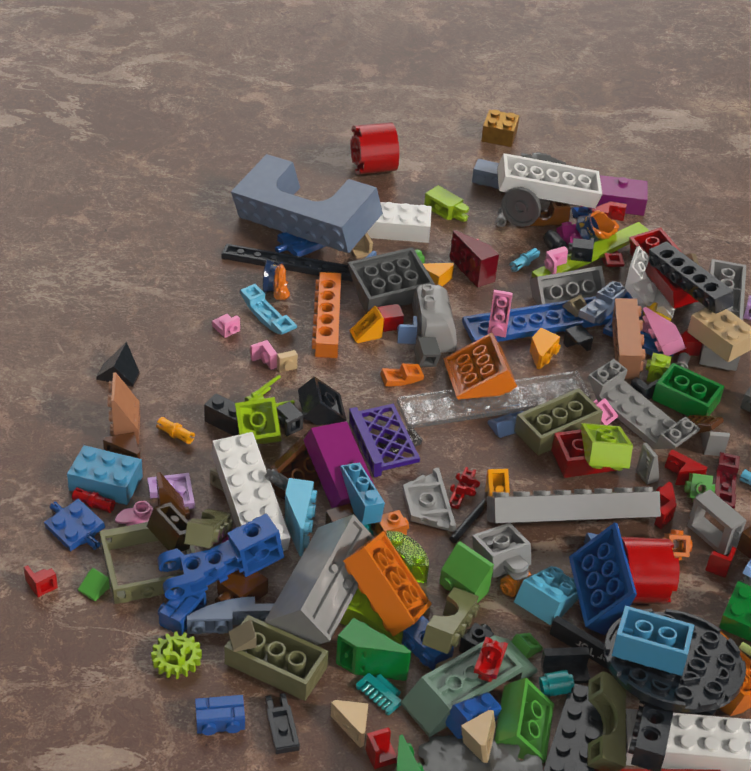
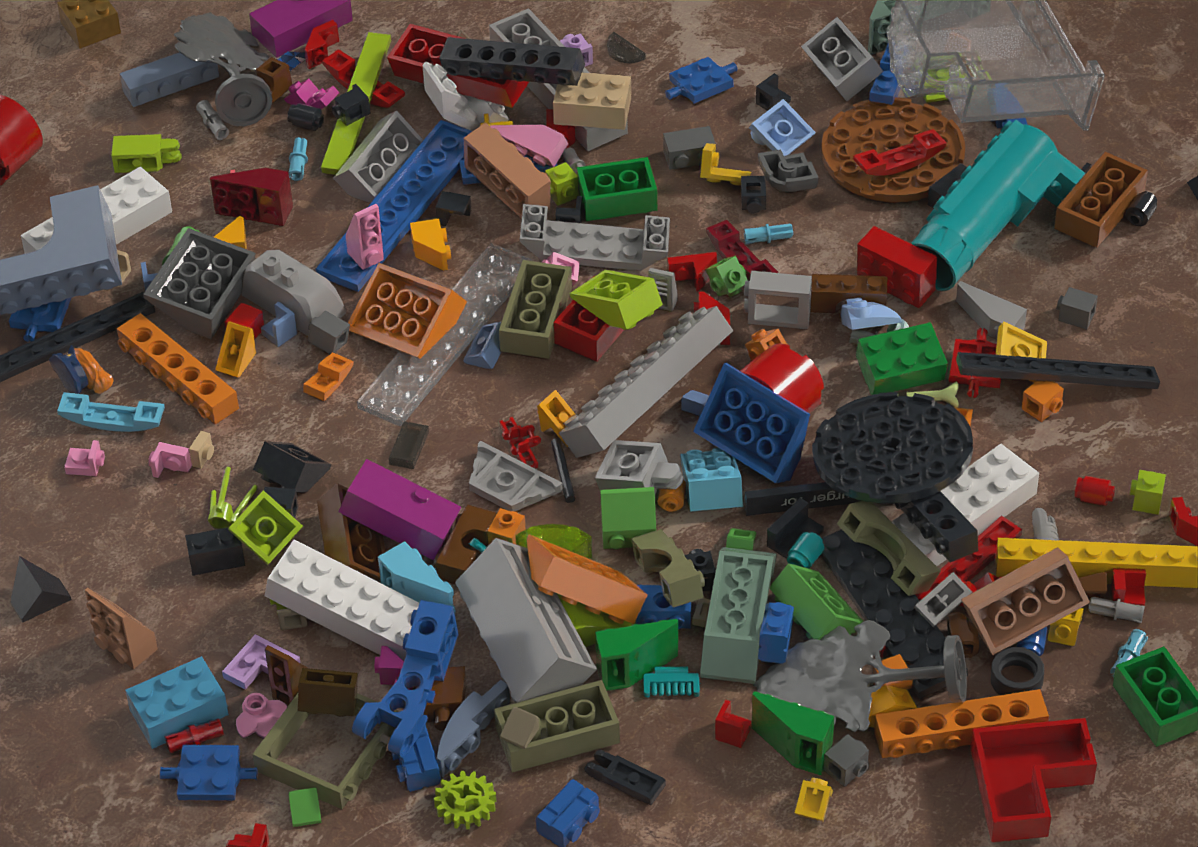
camera: 40 degrees left, 5 degrees up
(122, 444) = (157, 659): reddish brown slope -> none
(175, 430) = (182, 606): light orange pin -> none
(209, 529) = (371, 663): olive arch -> none
(277, 478) = (367, 566): flat silver axle -> none
(351, 718) = (681, 722): tan slope -> none
(363, 495) = (463, 519): dark azure slope -> none
(366, 439) = (353, 458): dark purple fence -> none
(479, 734) = (806, 644): tan slope -> none
(490, 659) = (749, 570): red hips -> none
(550, 180) = (245, 47): white brick -> none
(555, 258) = (335, 136): bright pink bracket -> none
(574, 305) = (413, 173): dark tan slope -> none
(596, 226) = (338, 68): piece -> none
(603, 304) = (439, 150): sand blue slope -> none
(653, 640) = (871, 441): dark azure brick -> none
(705, 423) = (668, 207): reddish brown slope -> none
(714, 442) = (690, 221): light grey slope -> none
(719, 563) = (816, 336): red panel -> none

